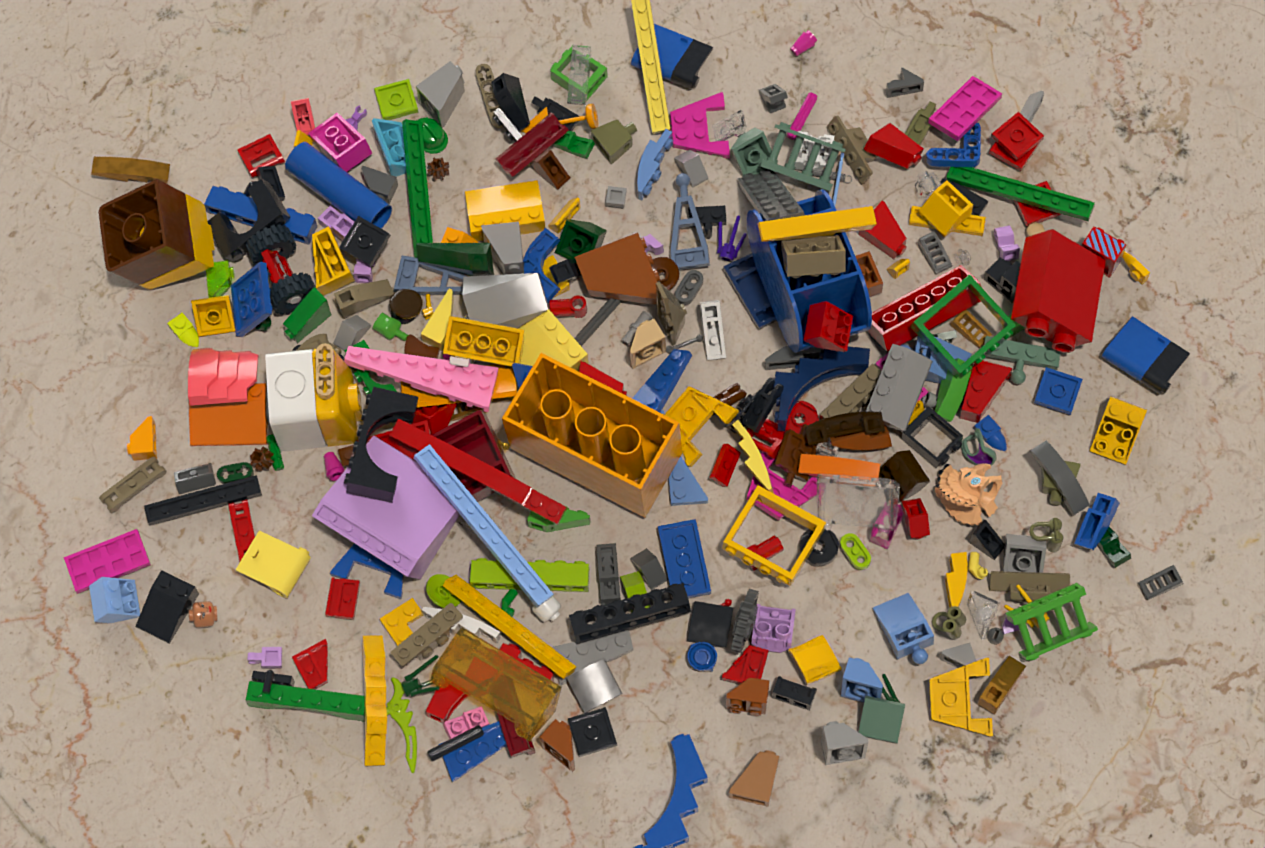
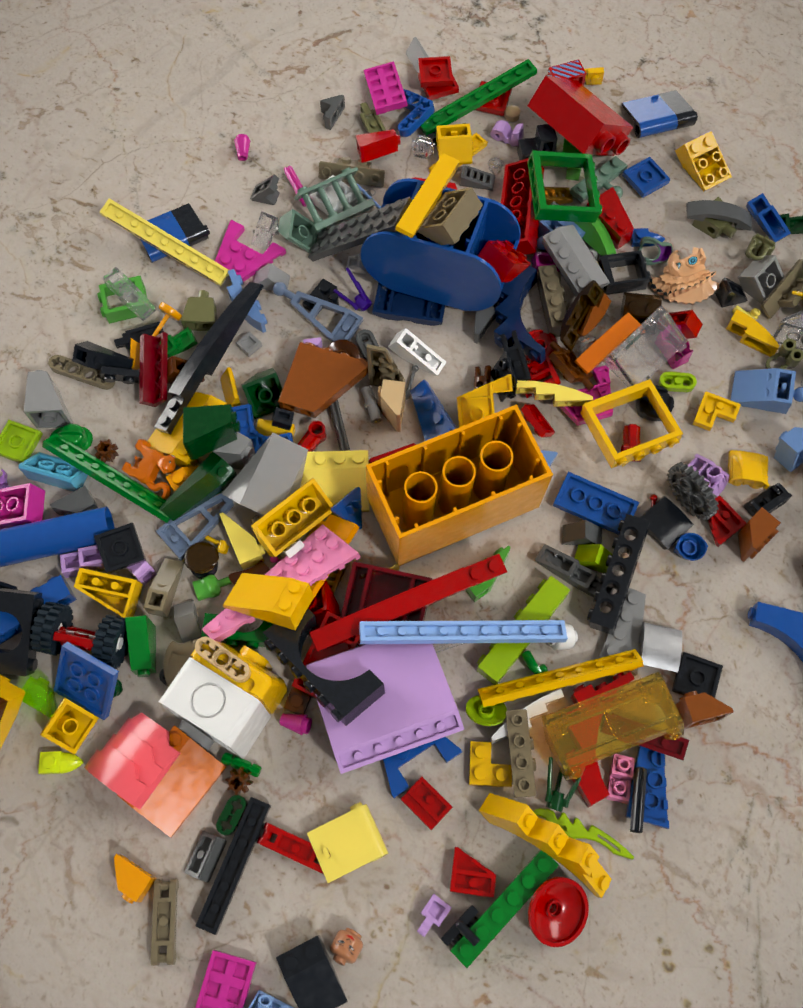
camera: 55 degrees left, 0 degrees up
(322, 748) = (567, 915): none -> red dish
(402, 373) = (270, 599): none -> yellow slope
(449, 210) = (148, 467): none -> orange animal
(499, 225) = (208, 428): none -> dark green slope
(576, 174) = (207, 356): none -> black slope
(850, 593) = (713, 406): none -> yellow plate

